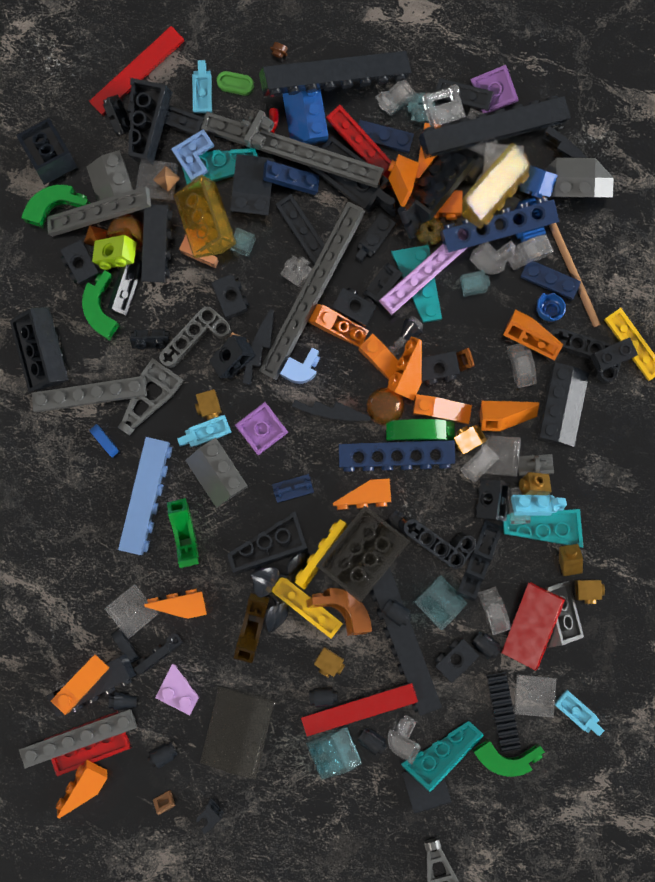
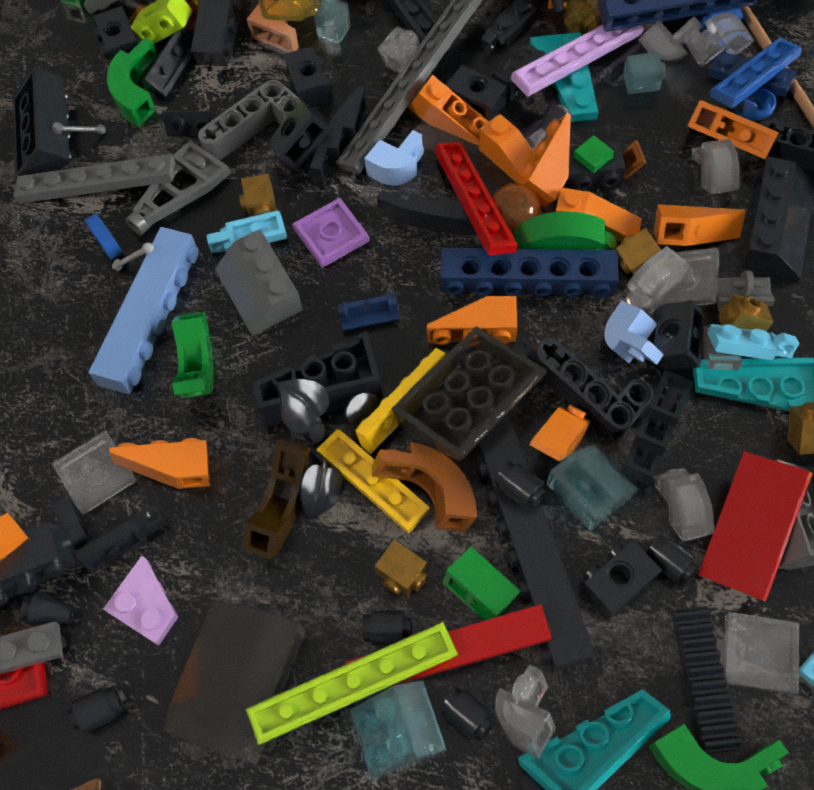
camera: 10 degrees right, 20 degrees down
(56, 358) = (57, 128): none -> dark grey hinge
(117, 460) = (146, 248): none -> light grey hinge
(308, 734) = (350, 683): none -> lime tile
(358, 402) = (475, 199): none -> red tile
(376, 669) = (480, 585): none -> green hinge
(419, 578) = (561, 432): none -> orange slope
(438, 366) = (593, 154): none -> green tile
(460, 501) = (628, 334): none -> light blue brick
(551, 288) = (755, 72): none -> blue tile

